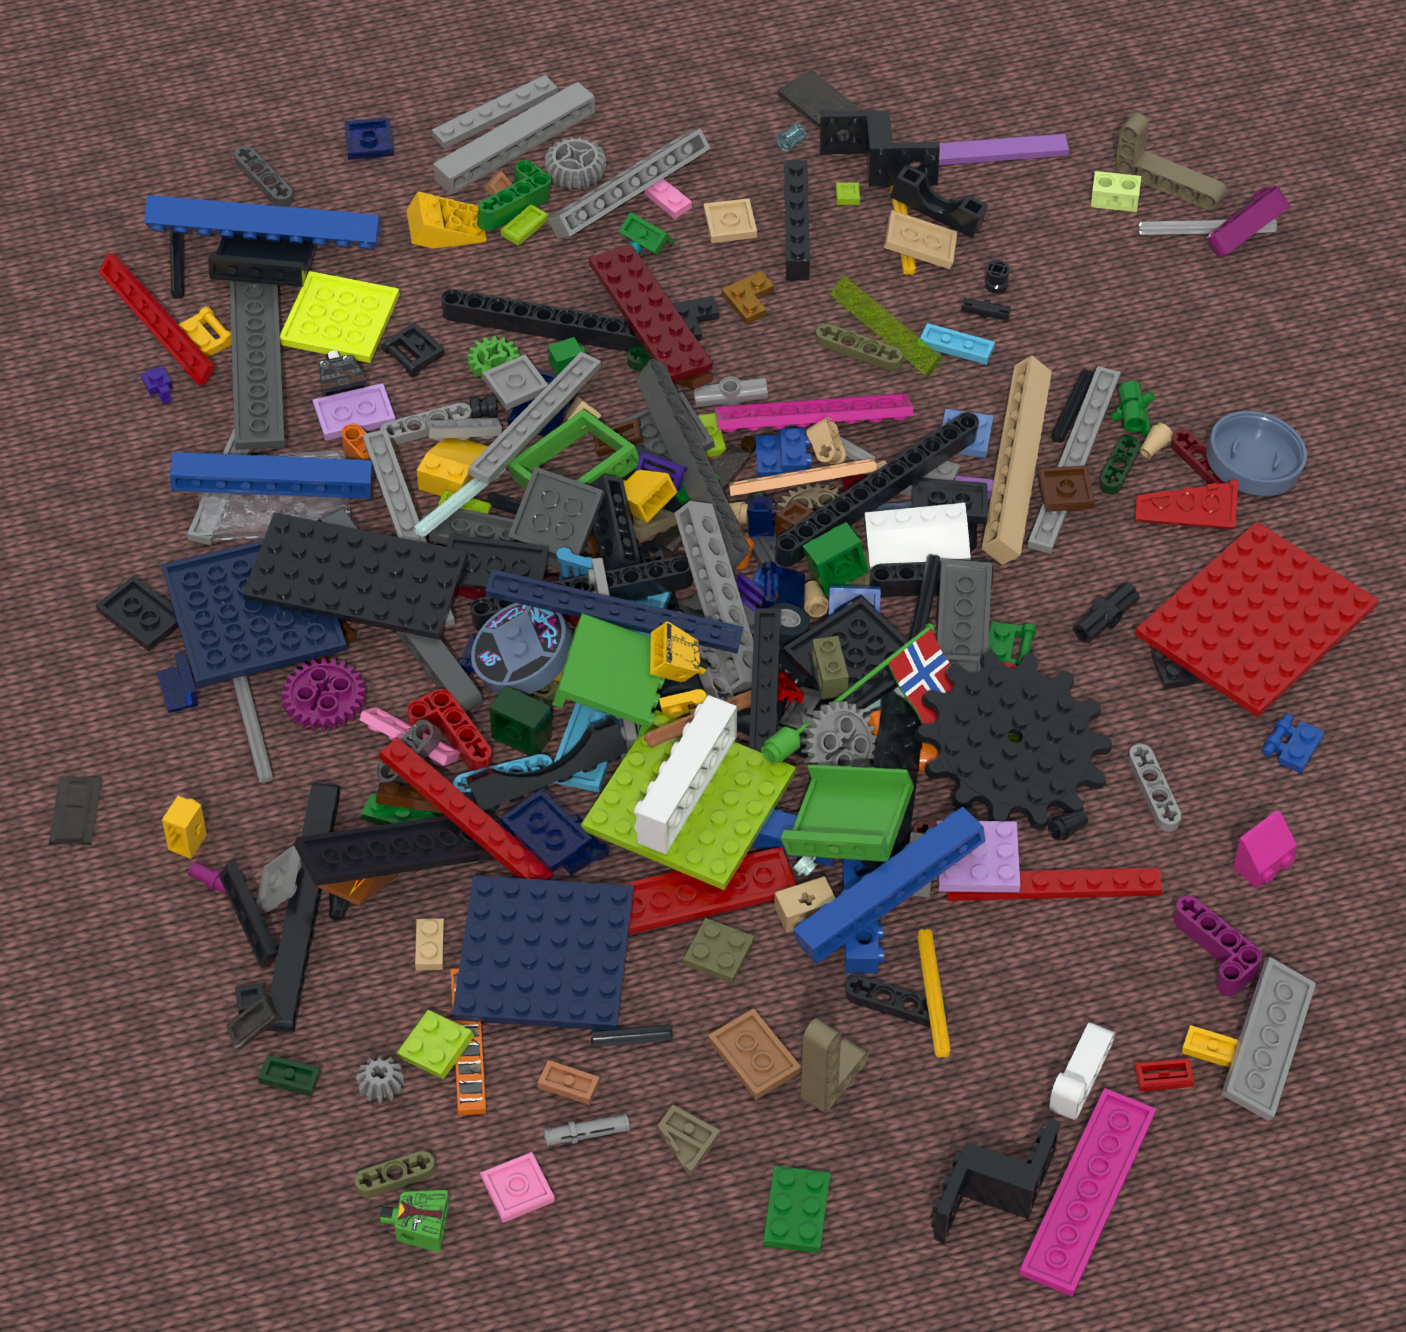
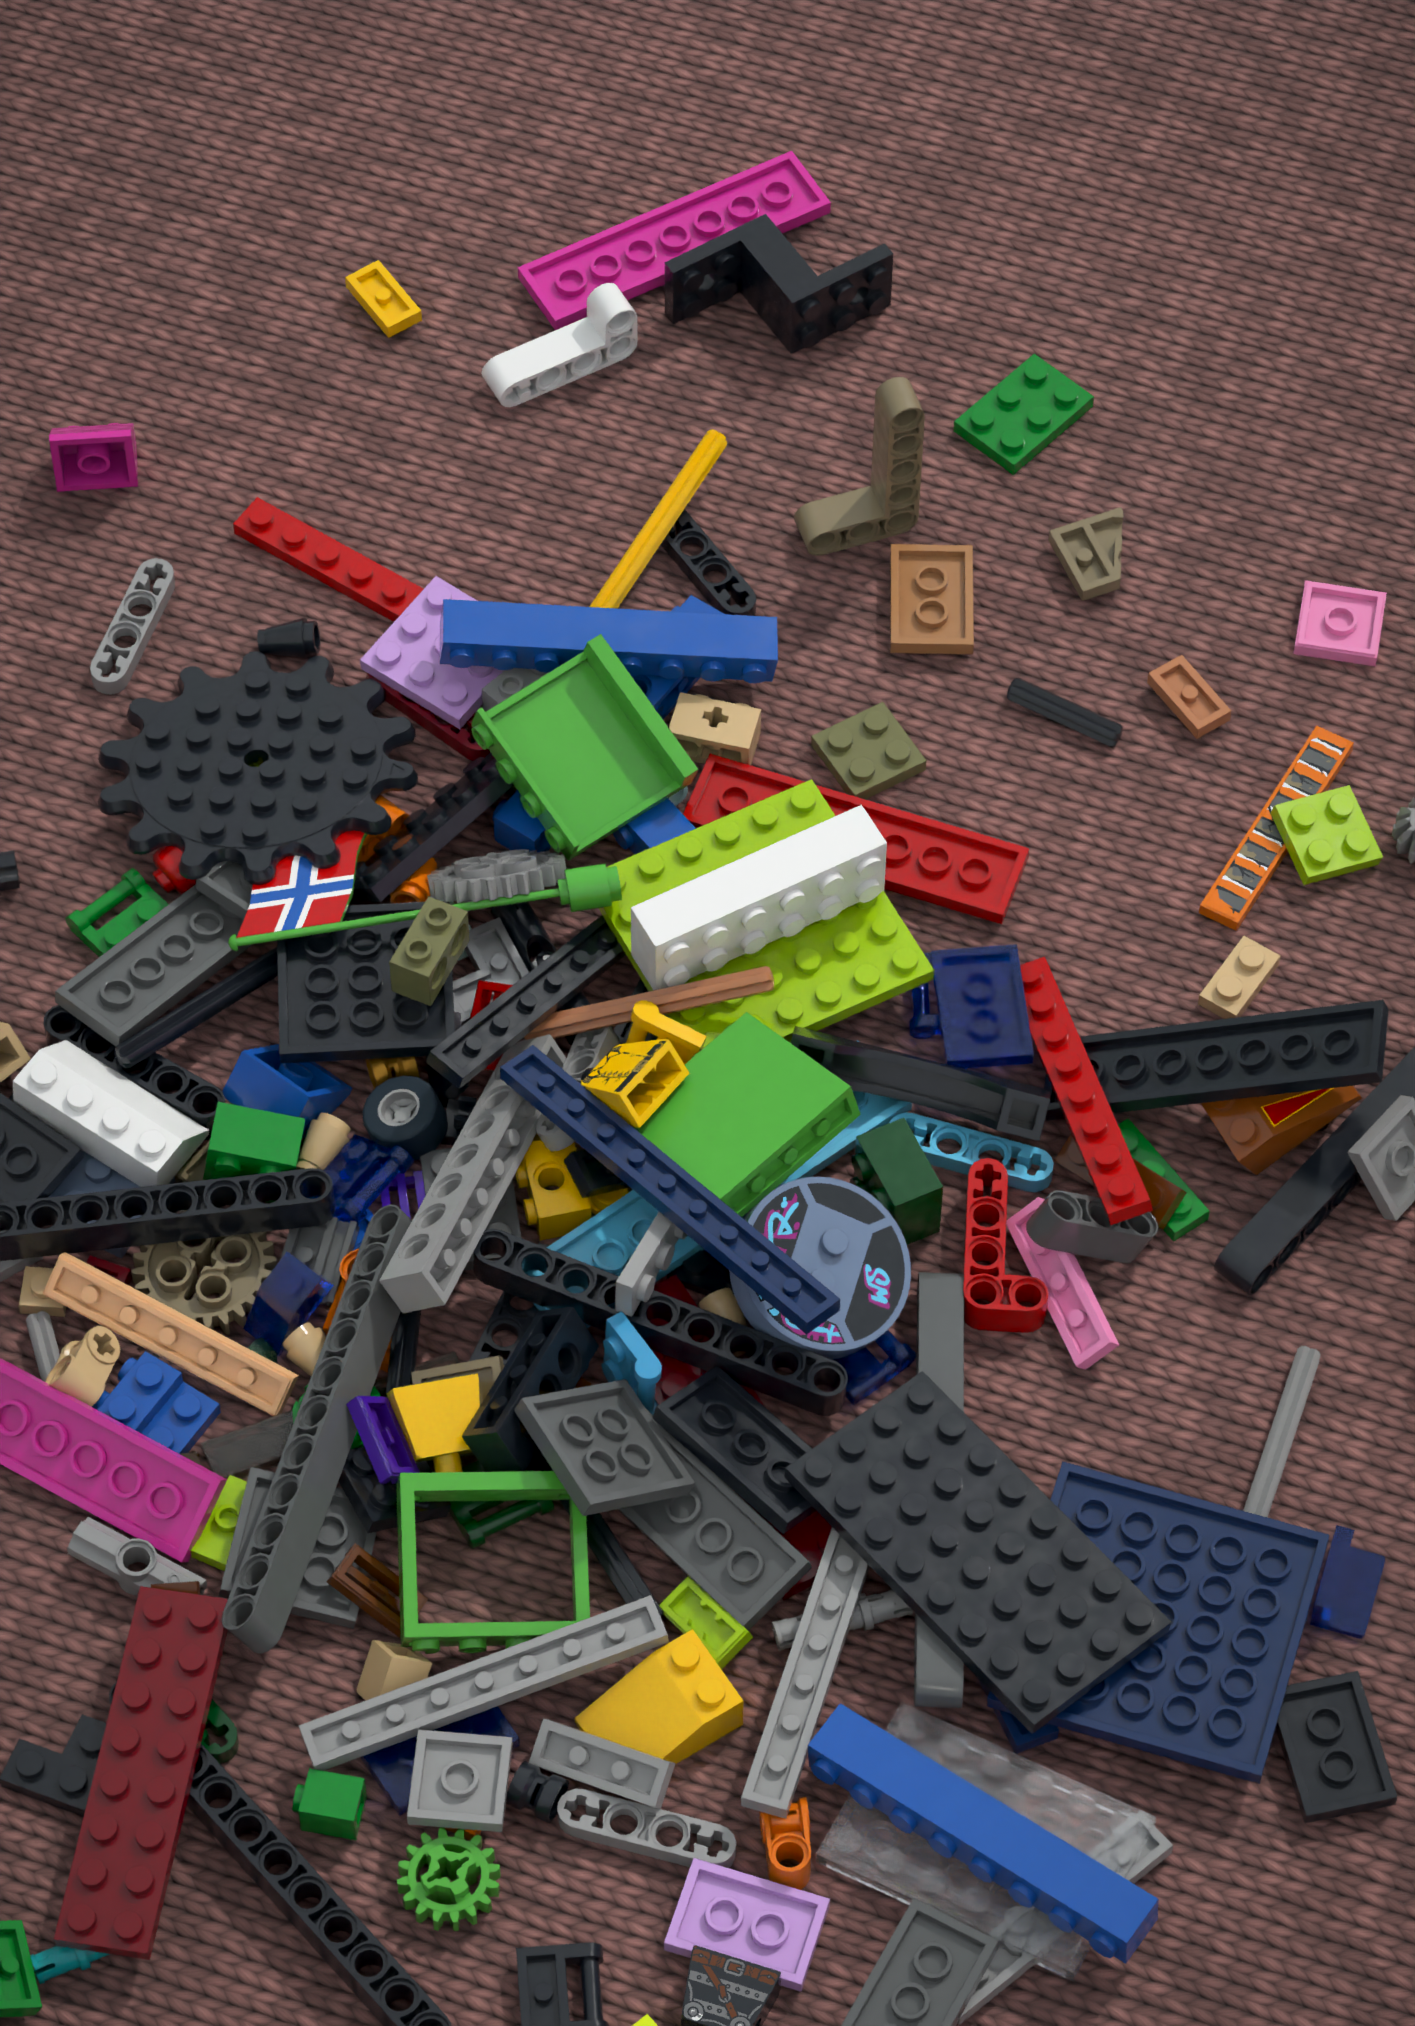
camera: 145 degrees left, 5 degrees up
(323, 694) = (1142, 1424): magenta gear -> none
(449, 506) = (731, 1603): light aqua axle -> none
(544, 953) = (1103, 860): dark blue plate -> none
(584, 1130) = (1209, 631): light grey pin -> none
(790, 516) = (254, 1248): reddish brown bracket -> none
(1164, 1079) = (461, 315): red tile -> none
(1193, 918) = (253, 361): magenta beam -> none
(1268, 1039) = (313, 261): light grey plate -> none

